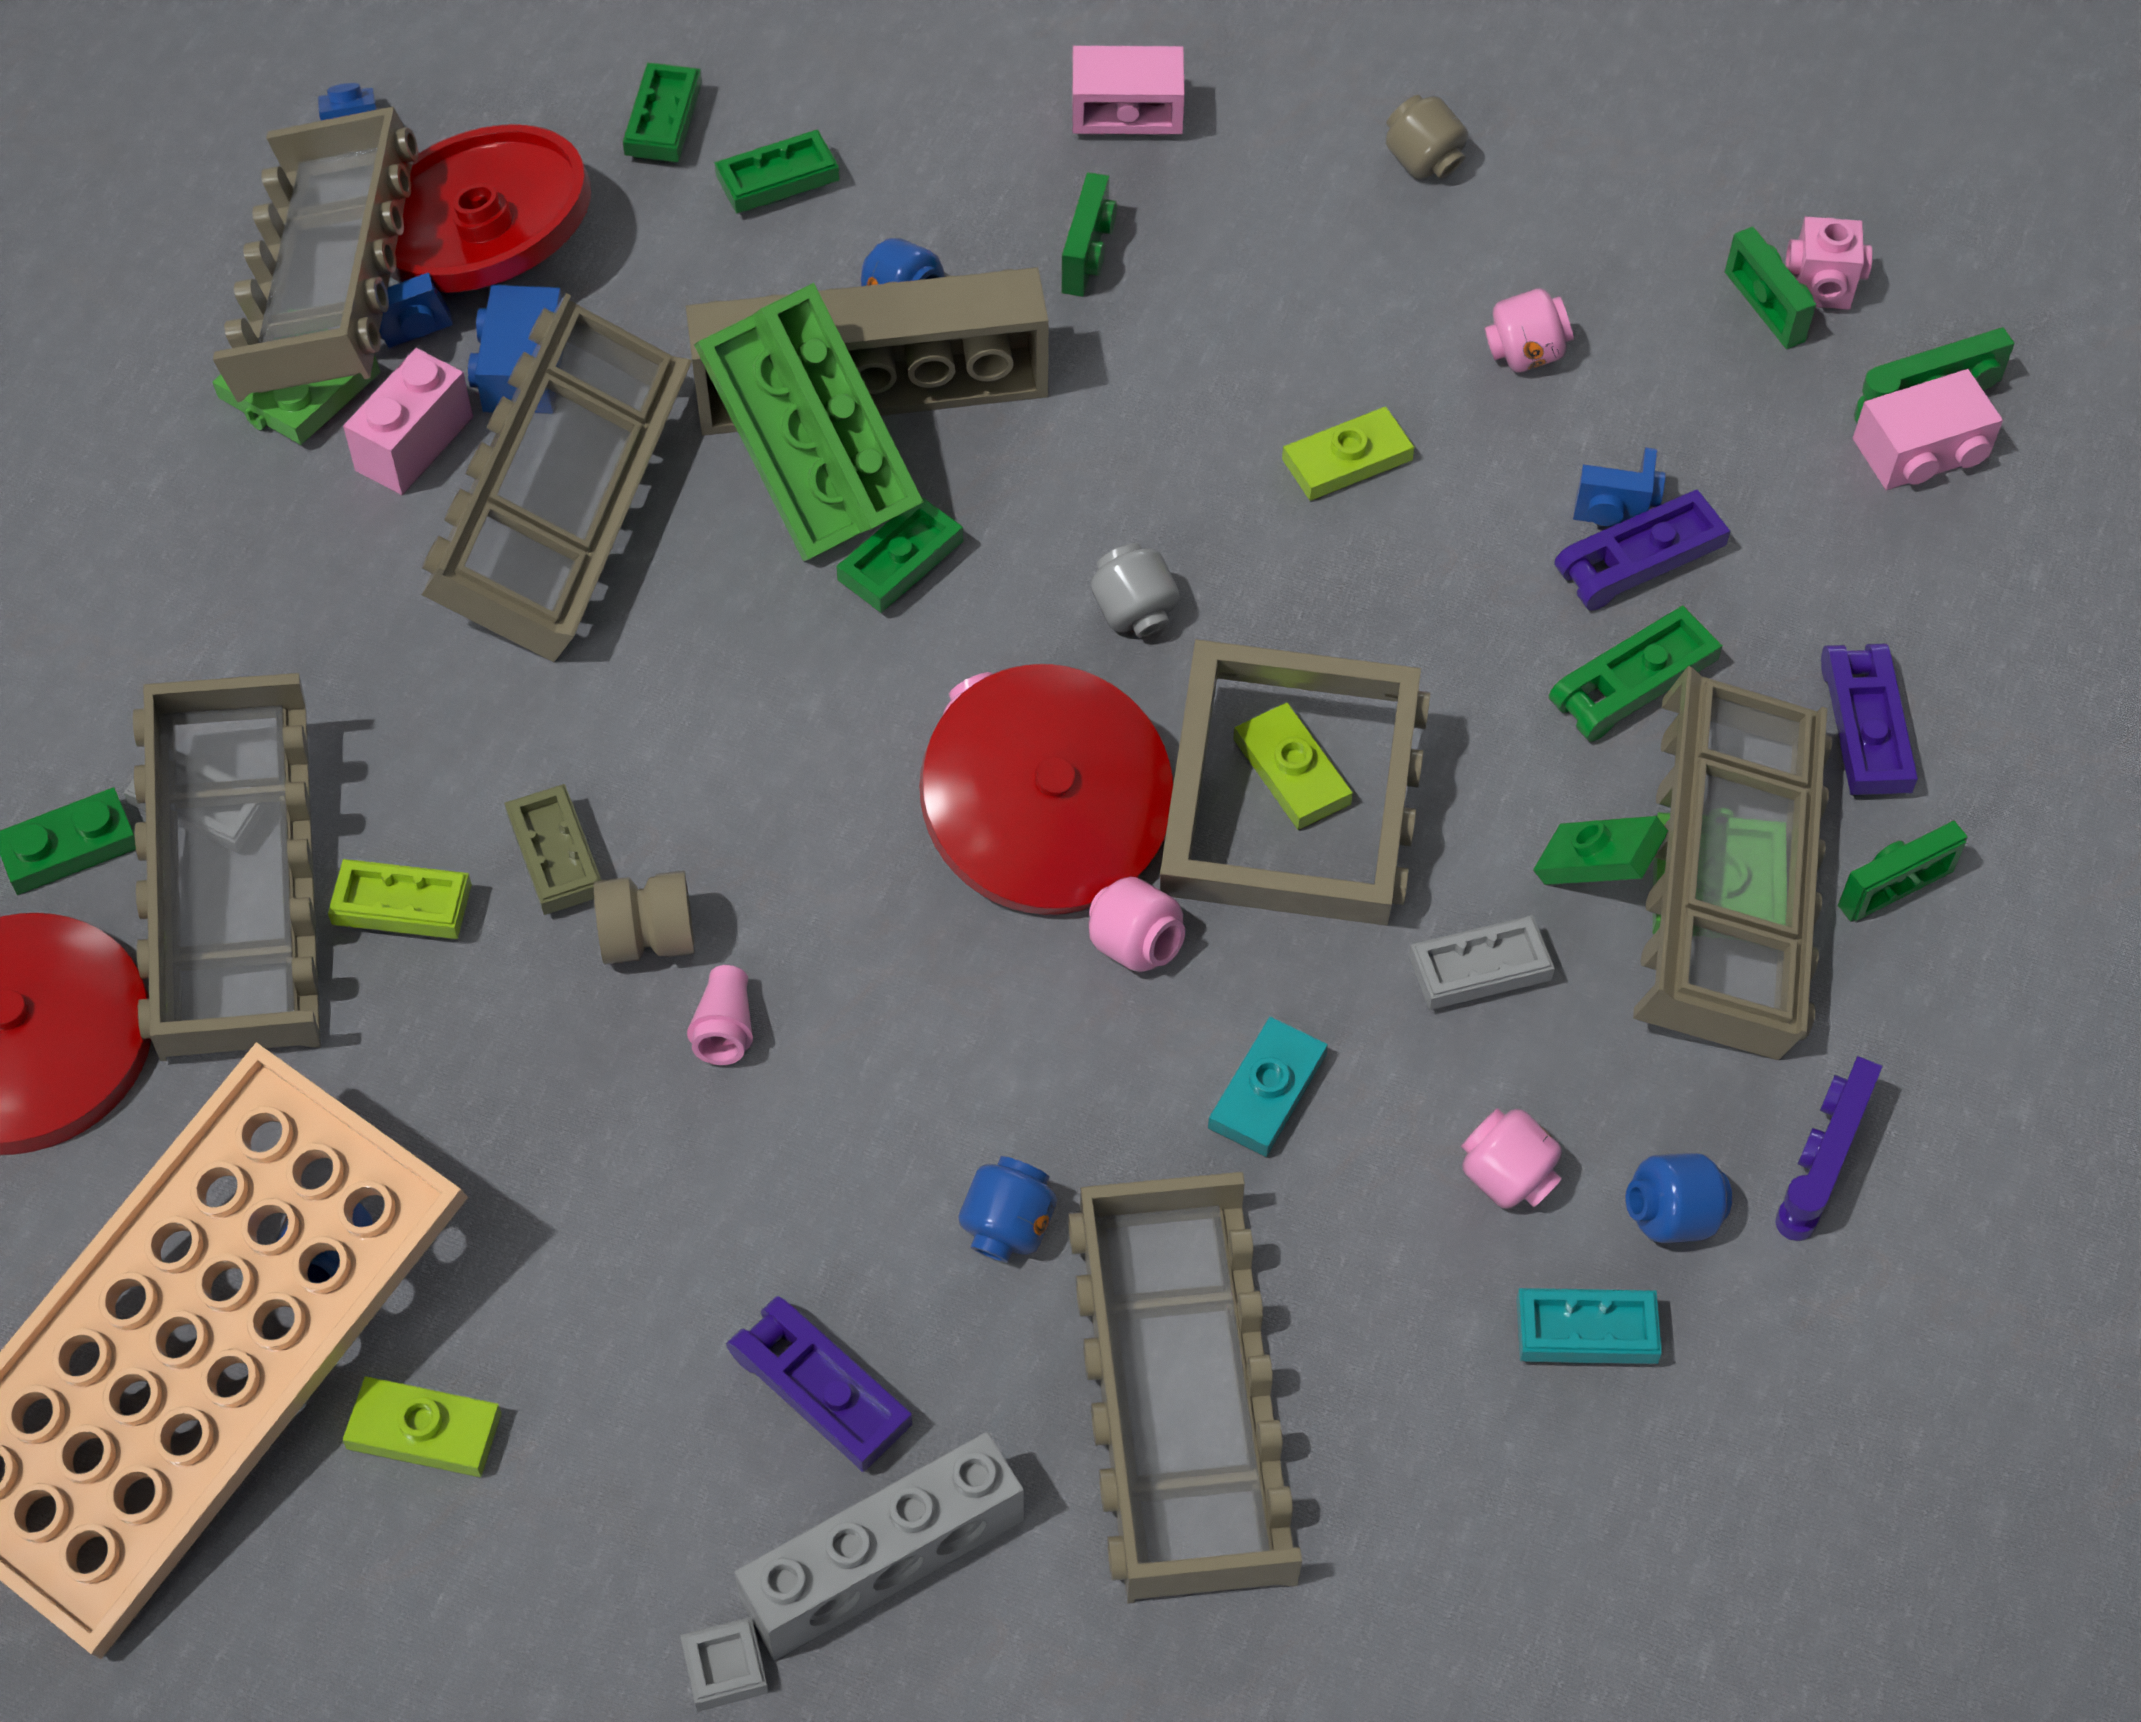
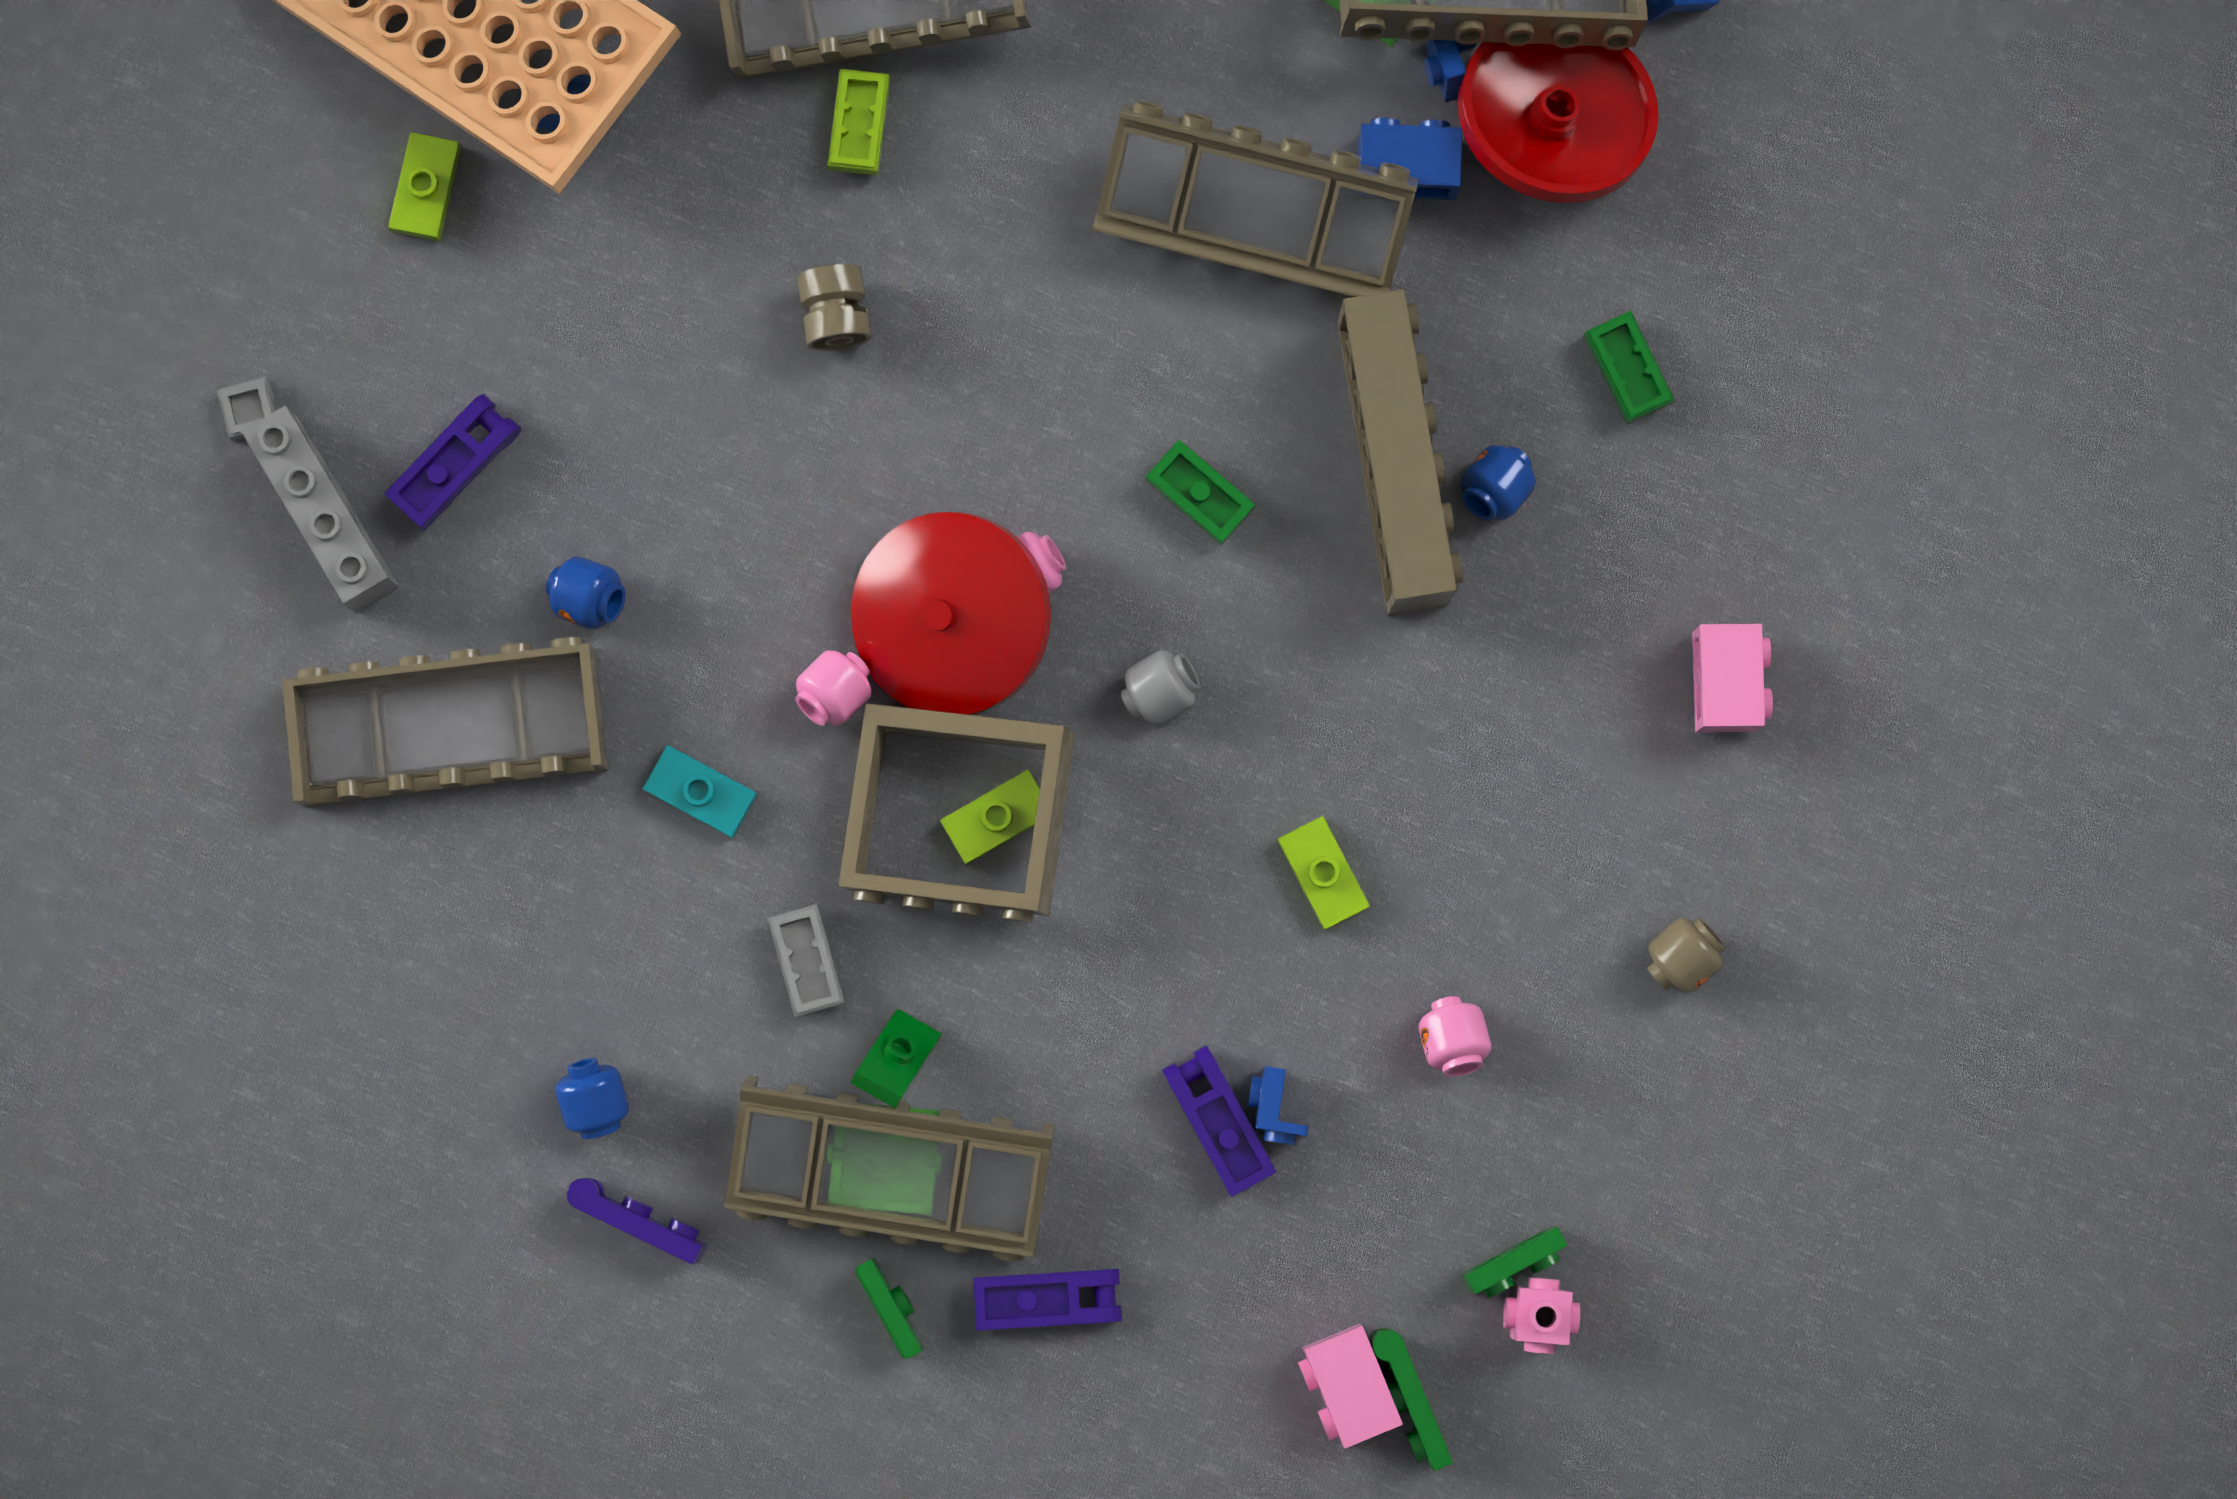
camera: 90 degrees right, 25 degrees up
(408, 421) = (1323, 75): bright pink brick -> none
(553, 848) = (906, 234): olive plate -> none
(662, 112) = (1697, 261): green plate -> none
(722, 1019) = (754, 374): bright pink cone -> none
(808, 422) = (1290, 399): bright green slope -> none
(1083, 250) = (1577, 649): green plate -> none
(1512, 1158) = (627, 973): bright pink head -> none
(1588, 1326) = (493, 1024): teal plate -> none
(1635, 672) = (1090, 1107): green plate -> none

